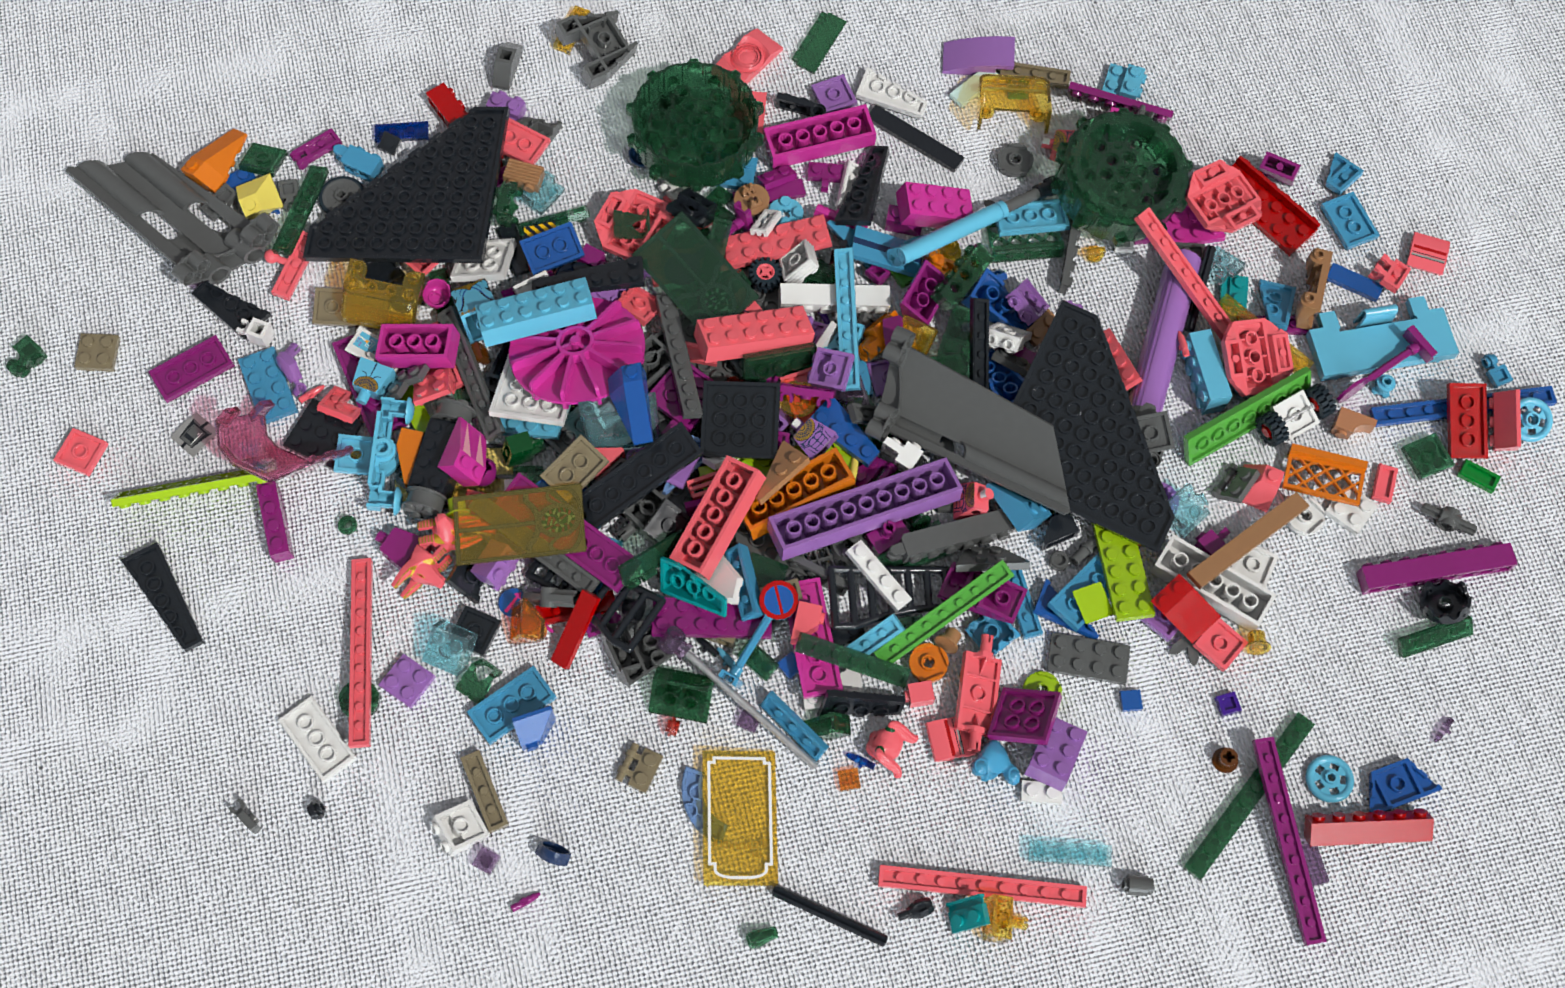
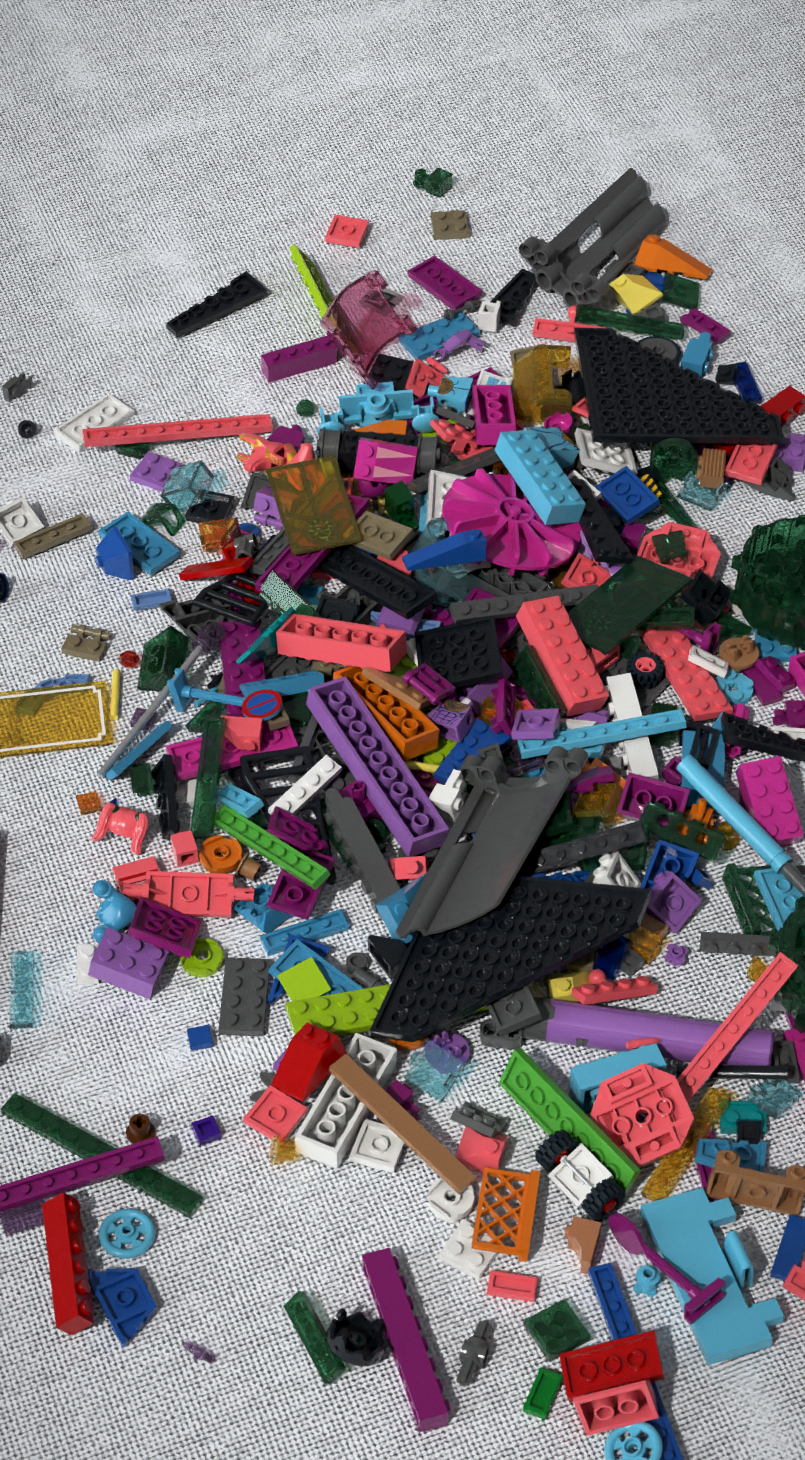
camera: 85 degrees right, 20 degrees down
(233, 350) = (469, 306): none -> dark grey piece
(591, 699) = (150, 599): none -> medium blue tile
(712, 744) = (114, 710): none -> light yellow bar
(726, 581) = (280, 665): white tile -> none
(780, 443) = (429, 683): none -> magenta plate
(799, 263) = (662, 691): white brick -> none
(869, 244) = (705, 763): none -> black tile
(928, 590) = (294, 831): none -> magenta tile
(984, 558) = (340, 885): dark grey wing -> none
(1251, 289) = (748, 1130): none -> black tile
(1498, 374) = (693, 1414): dark azure plate -> none

